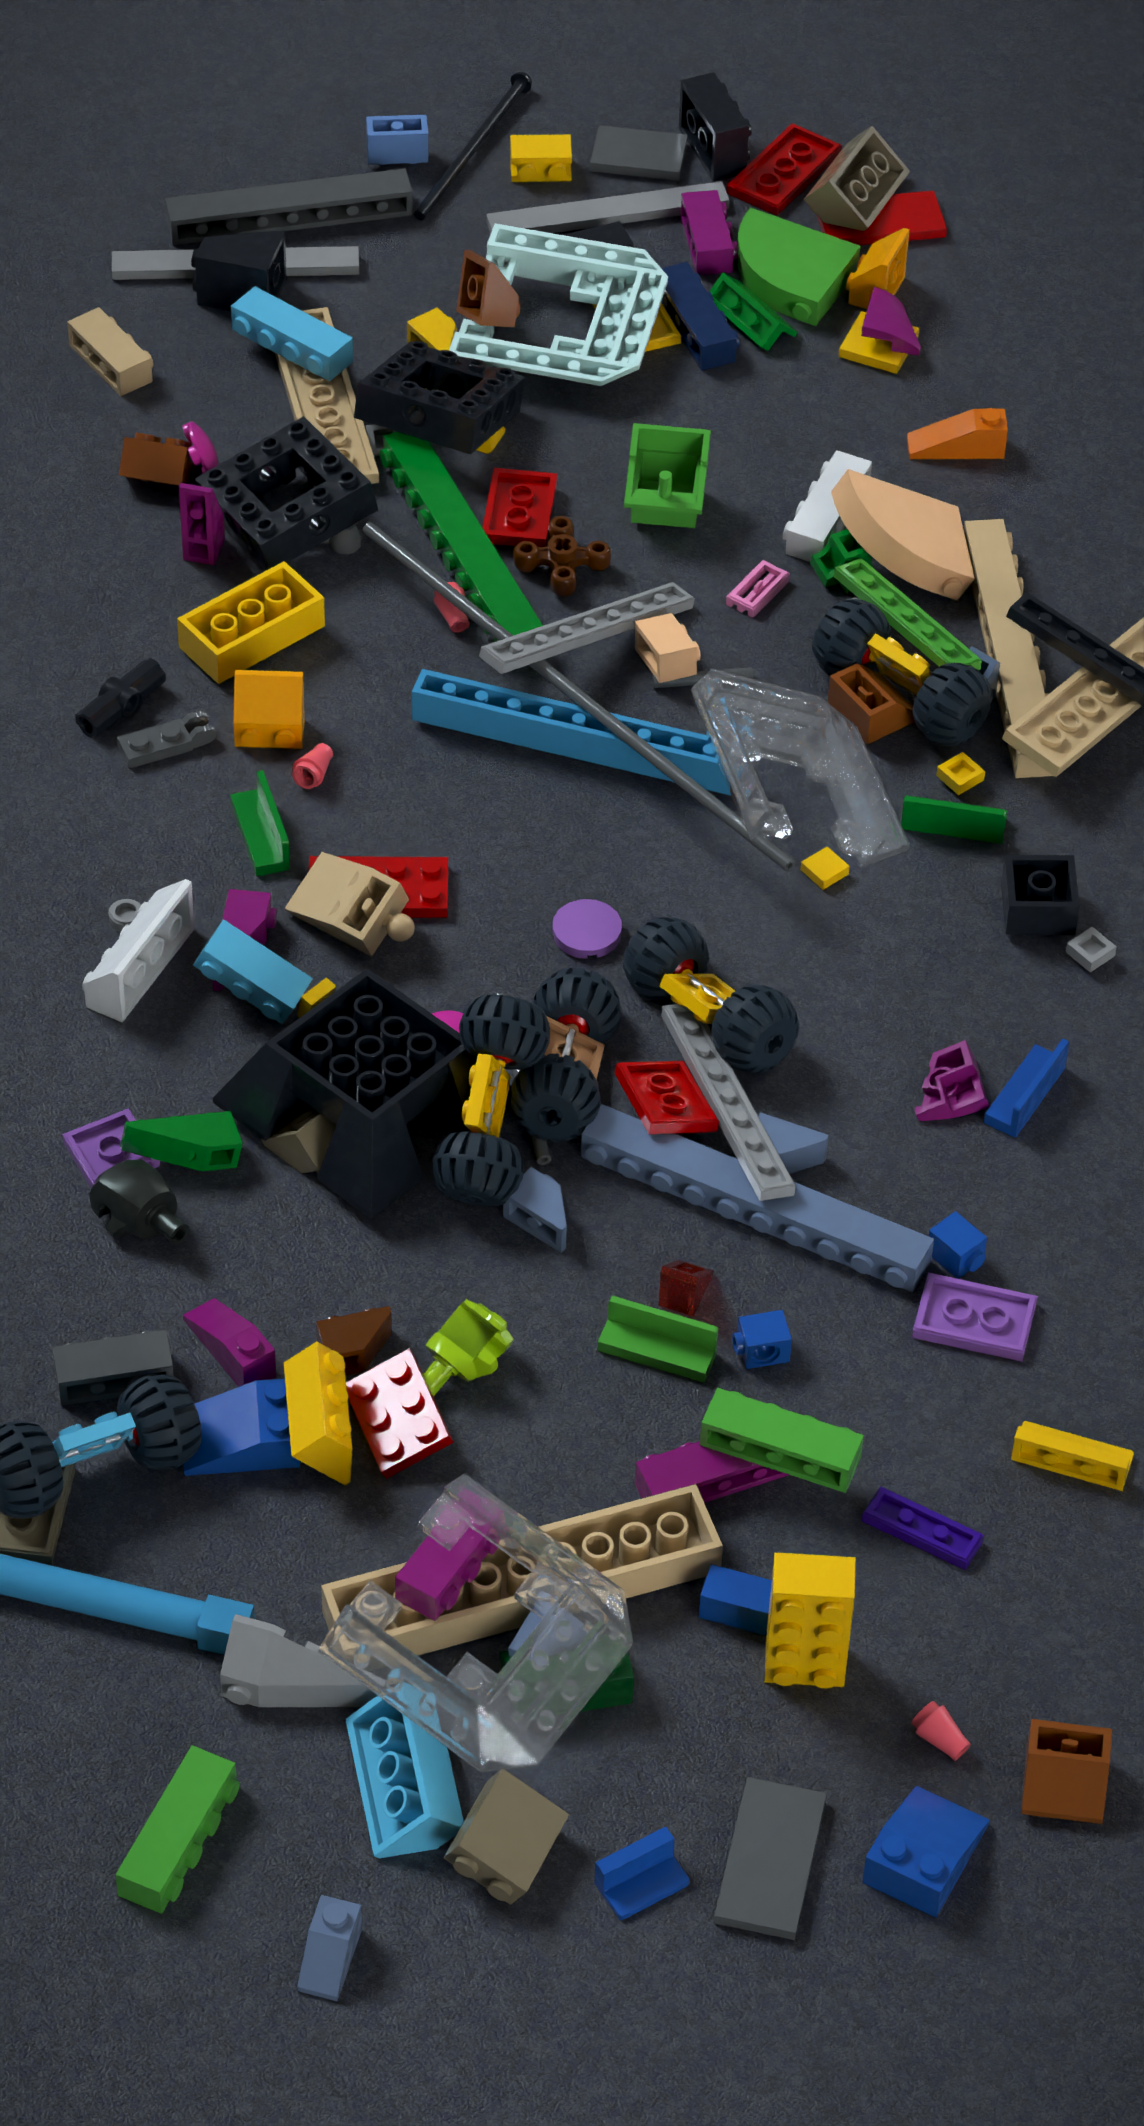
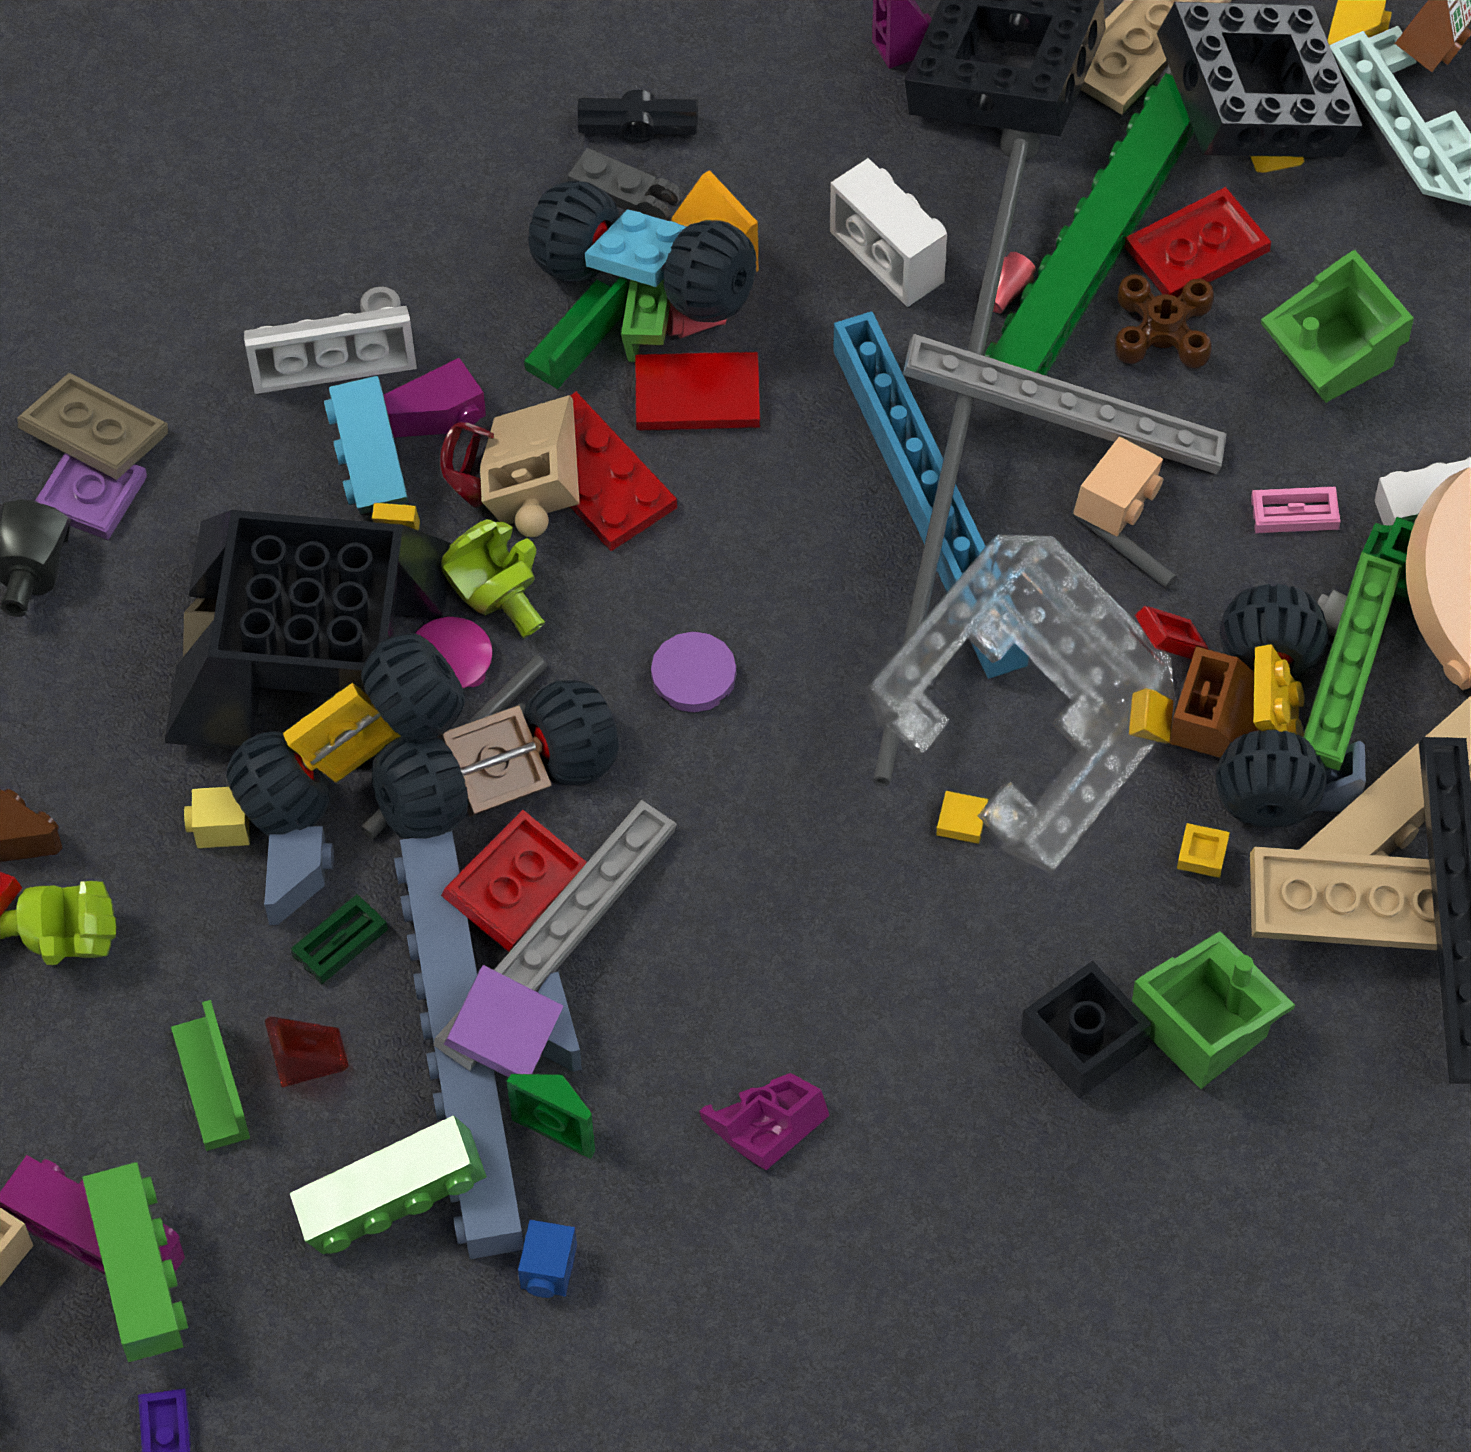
camera: 55 degrees right, 10 degrees up
(63, 1114) = (92, 426): none -> dark tan tile
(190, 1141) = (139, 545): green slope -> none
(251, 622) = (813, 138): yellow brick -> none
(288, 775) = (644, 317): none -> bright green panel
(312, 723) = (703, 264): none -> black plate
(328, 950) = (464, 484): none -> dark red piece
(361, 630) = (888, 231): none -> white brick
(370, 800) = (697, 391): none -> red tile
(424, 974) = (491, 576): none -> lime piece
(459, 1223) = (216, 819): none -> light yellow brick
(615, 1242) = (322, 973): none -> dark green tile
(749, 1025) = (662, 883): black plate -> none
(763, 1339) = (282, 1163): blue brick -> none
(784, 1152) = (503, 1024): none -> medium lavender tile
(801, 684) = (1170, 632): none -> red tile
(840, 1284) = (388, 1186): none -> brick
(851, 731) = (1151, 716): none -> yellow slope
(865, 1170) = (552, 1109): none -> green slope
(953, 819) = (1137, 885): green panel -> none
(975, 1317) = (478, 1335): medium lavender tile -> none
(1027, 1088) = (821, 1189): blue panel -> none
(1090, 825) = (1208, 1007): none -> bright green piece
(1091, 949) = (1065, 1125): light grey plate -> none

